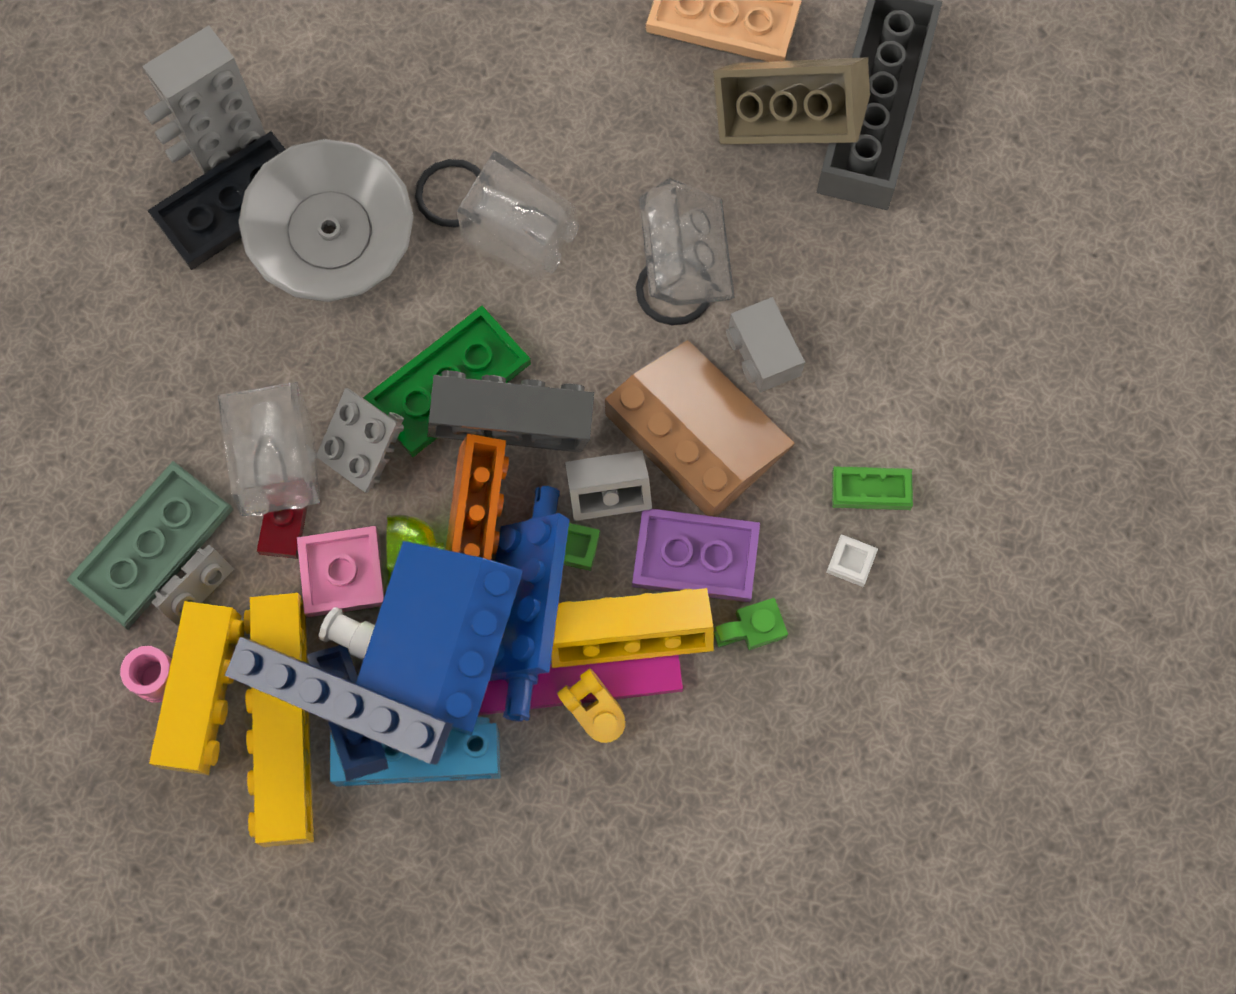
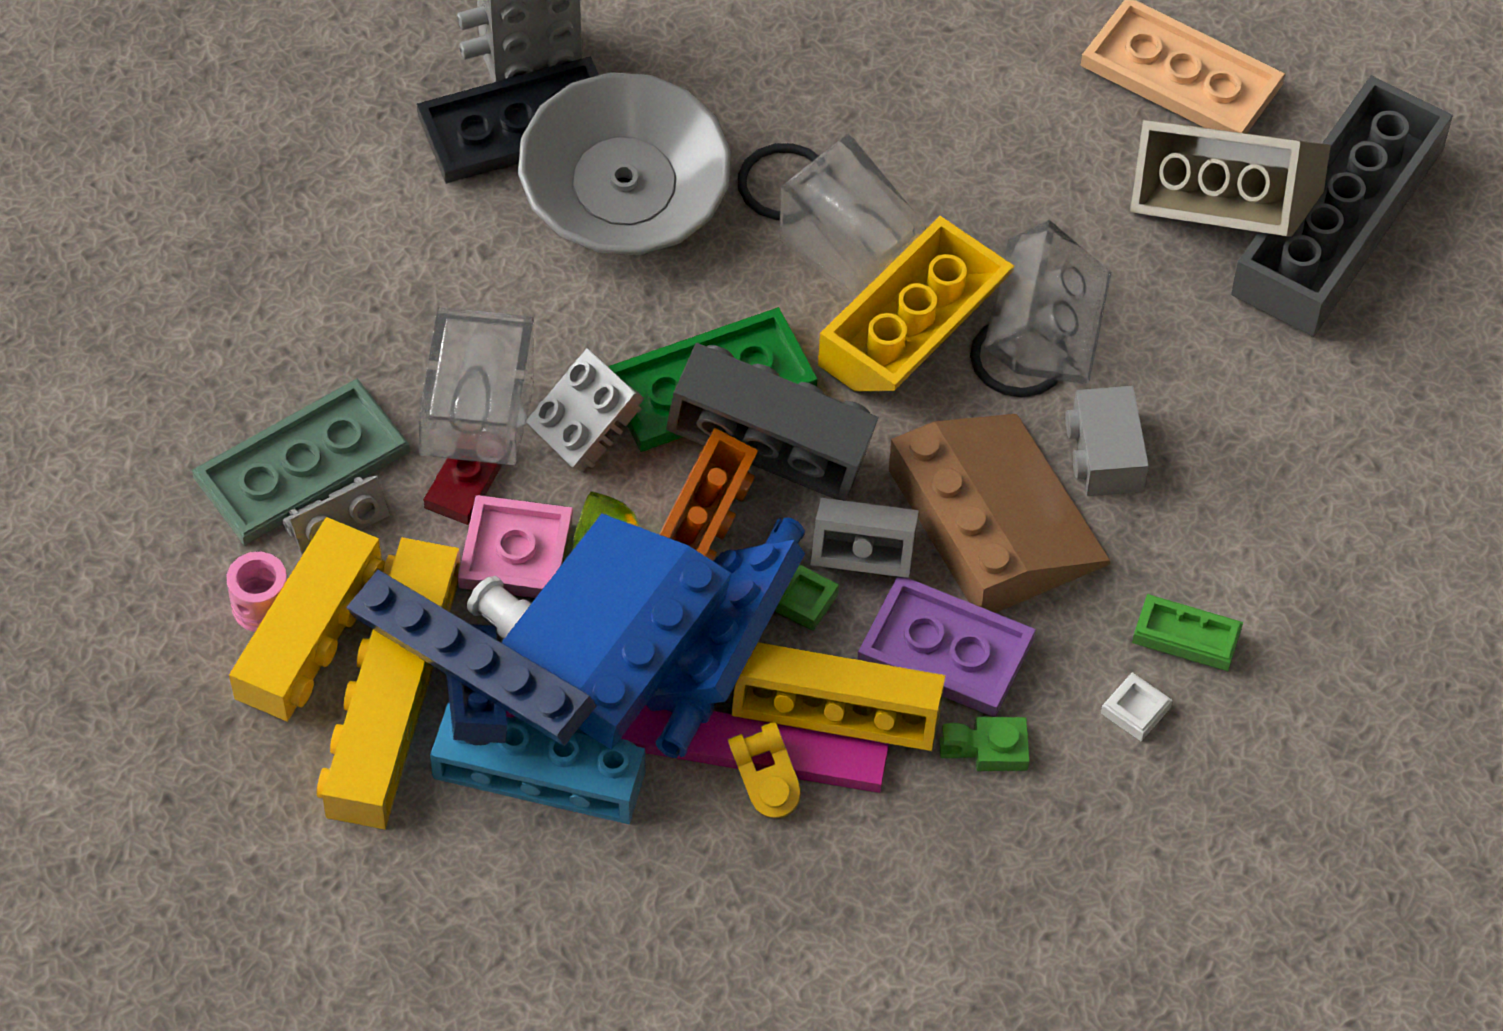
camera: 15 degrees right, 15 degrees down
(586, 281) = (910, 308): none -> yellow slope

